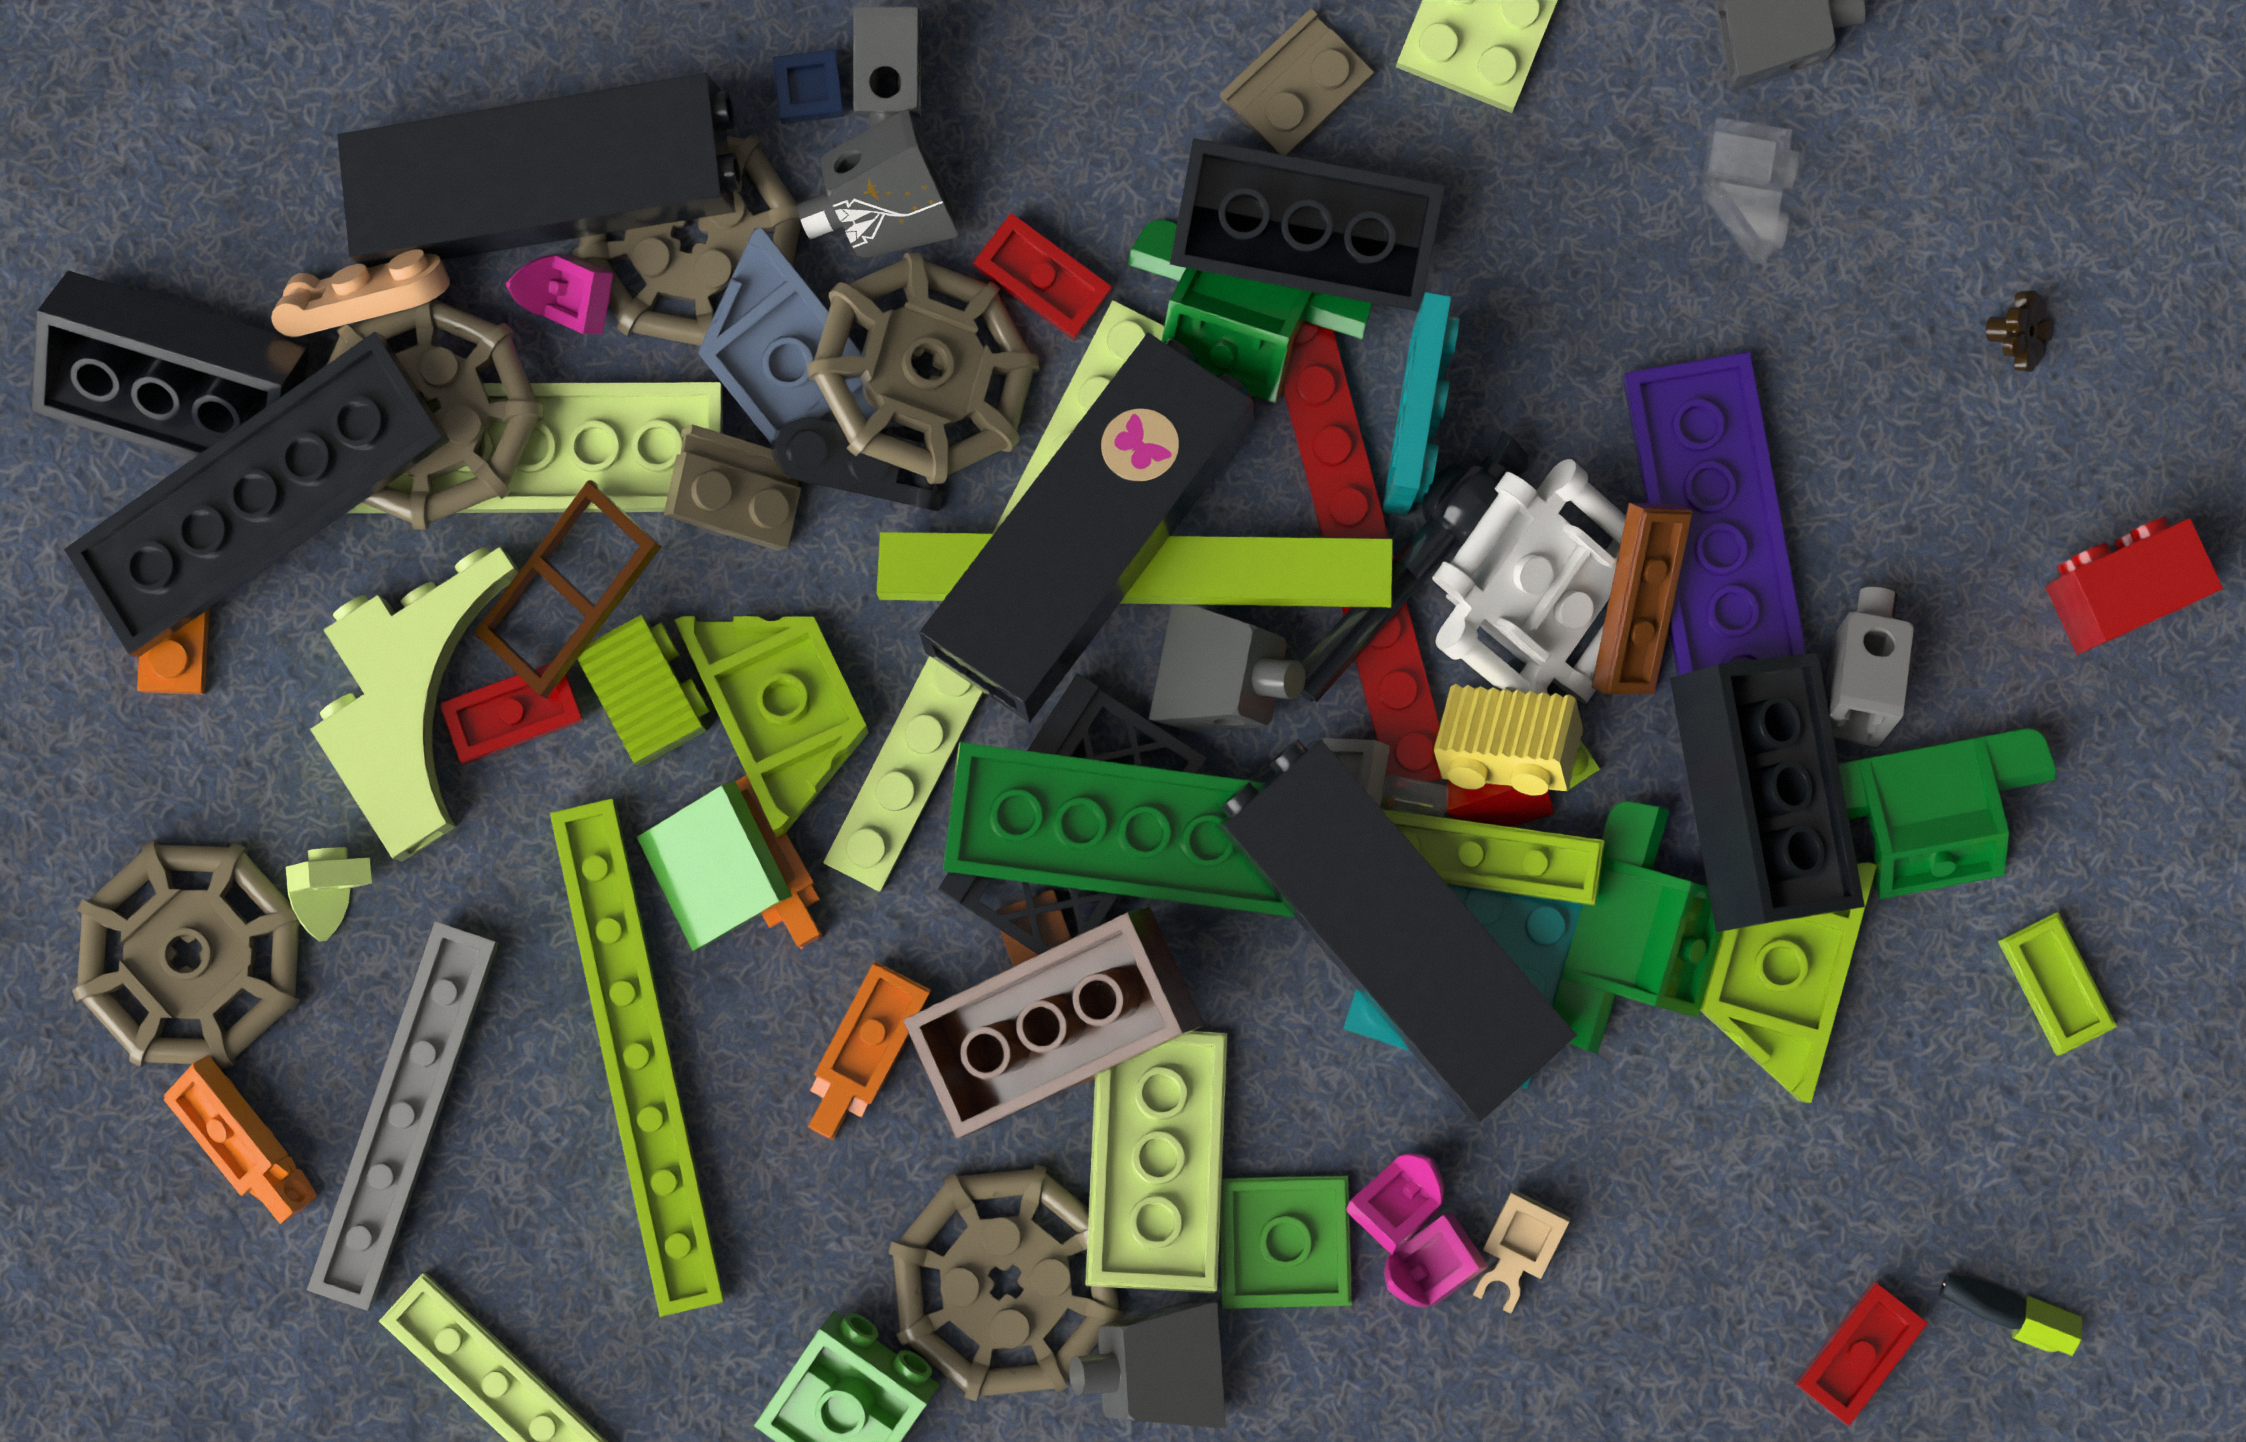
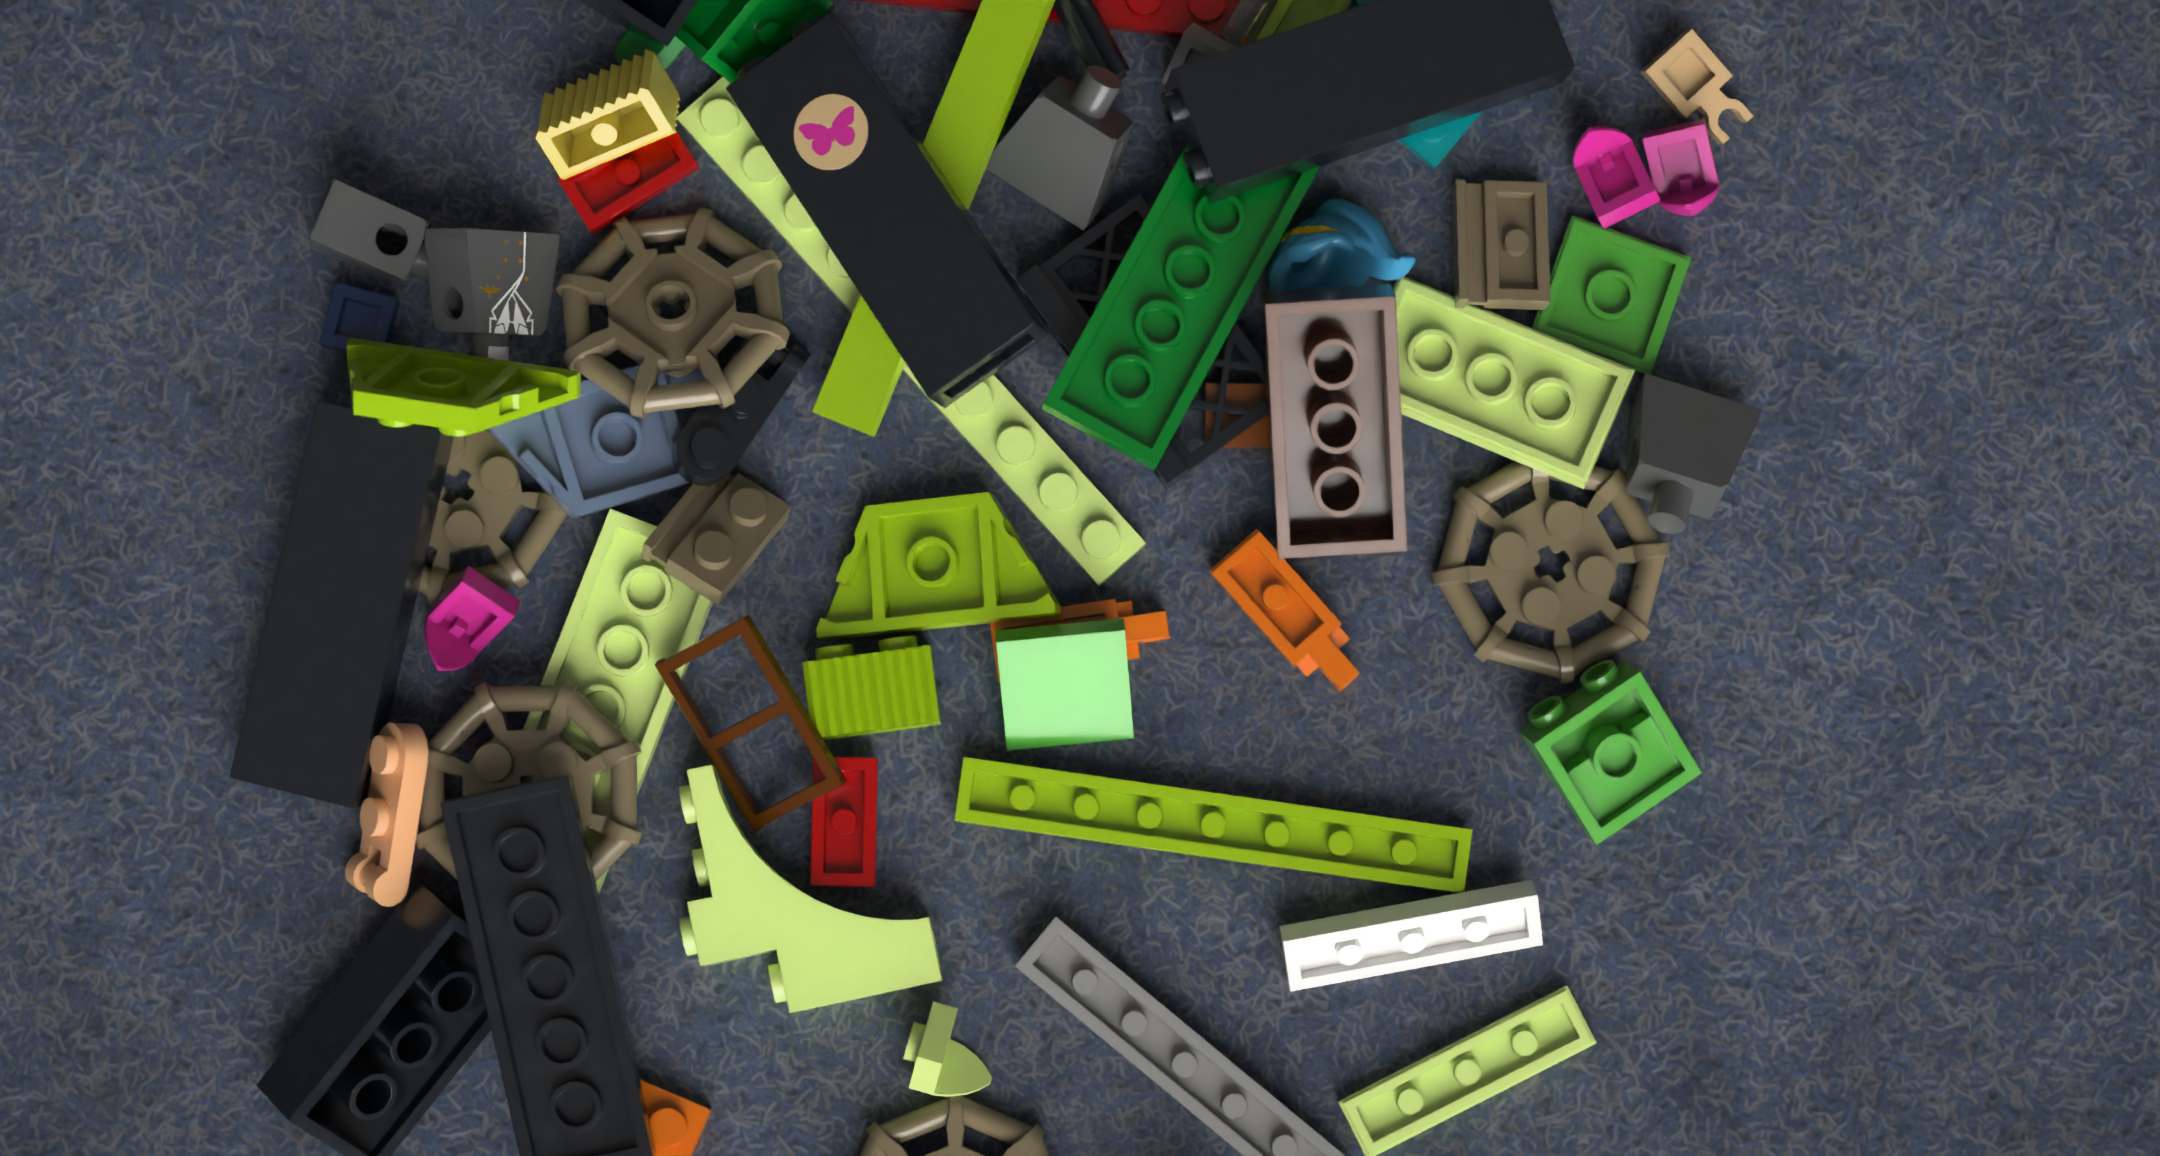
camera: 70 degrees left, 0 degrees up
(602, 1282) = (1411, 935): none -> white plate
(764, 188) = (449, 388): none -> lime wing
(1085, 235) = (607, 115): none -> light yellow brick
(1221, 963) = (1336, 249): none -> dark azure hair
(1291, 1118) = (1501, 244): none -> dark tan plate

